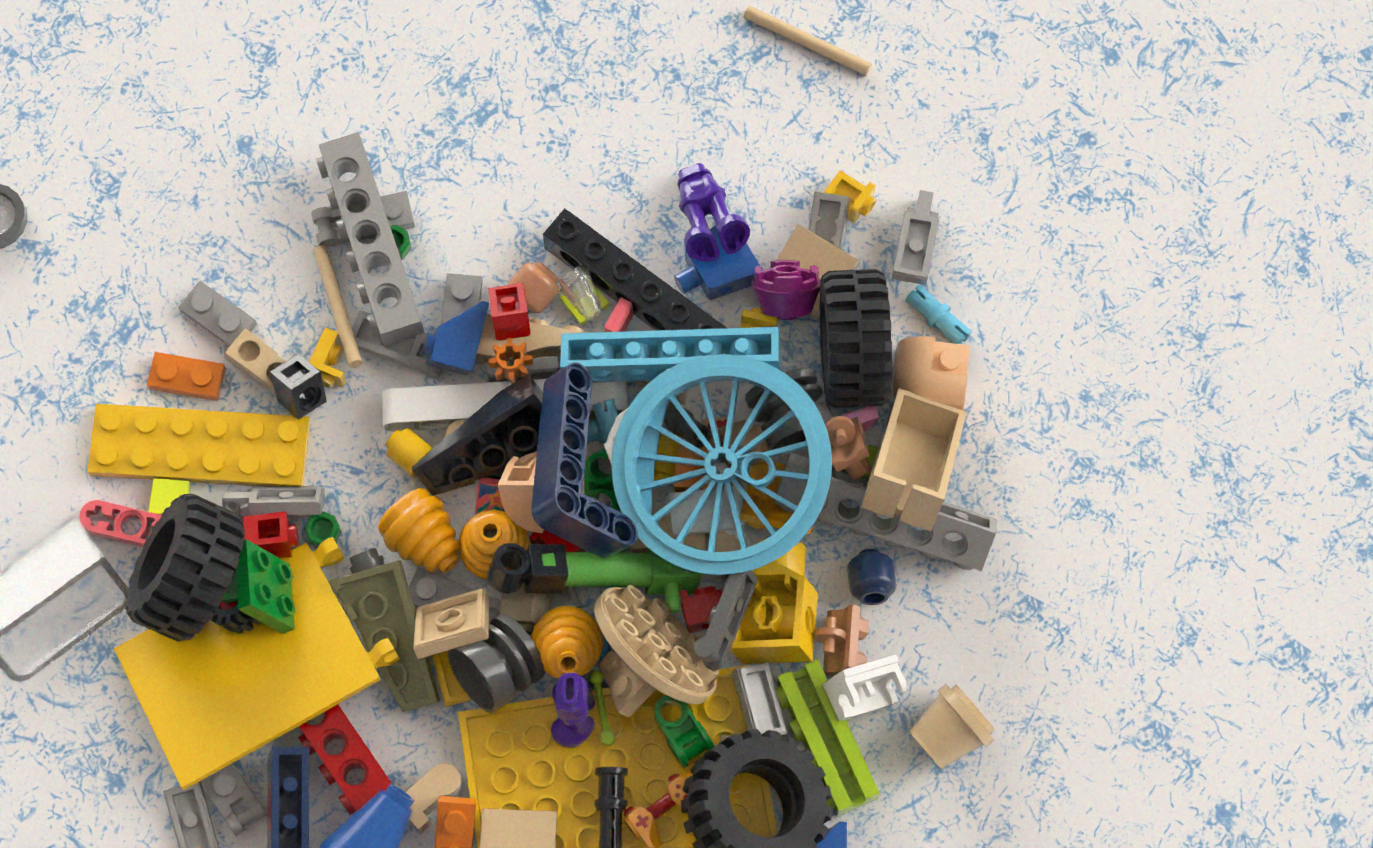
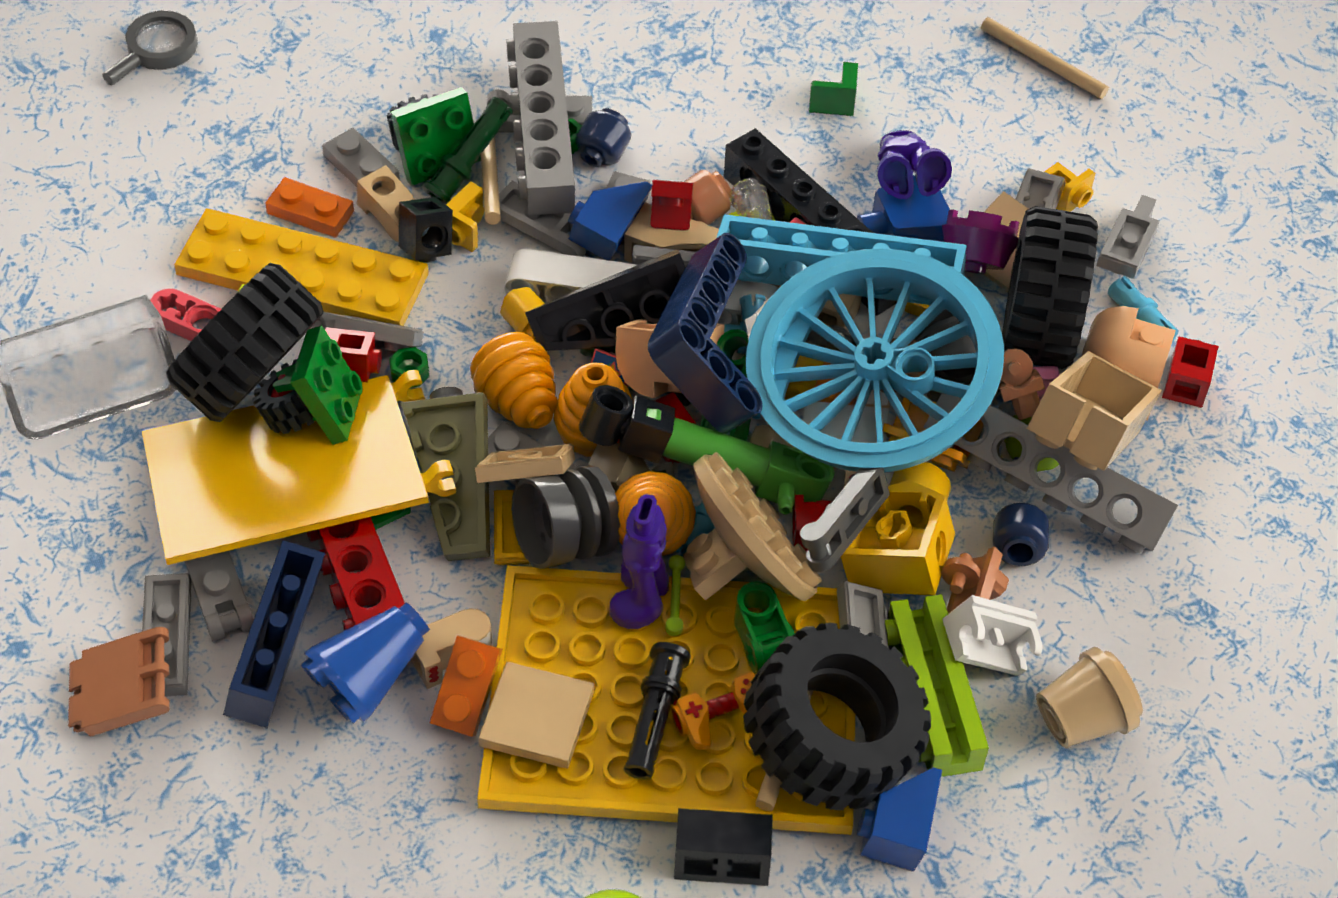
camera: 10 degrees right, 20 degrees down
(274, 276) = (429, 130): none -> green plate
(308, 308) = (458, 165): none -> dark green pin
(428, 240) = (603, 137): none -> dark blue head
(501, 360) = (660, 237): orange gear -> none
(625, 133) = (834, 96): none -> green panel
(988, 387) = (1190, 371): none -> red brick

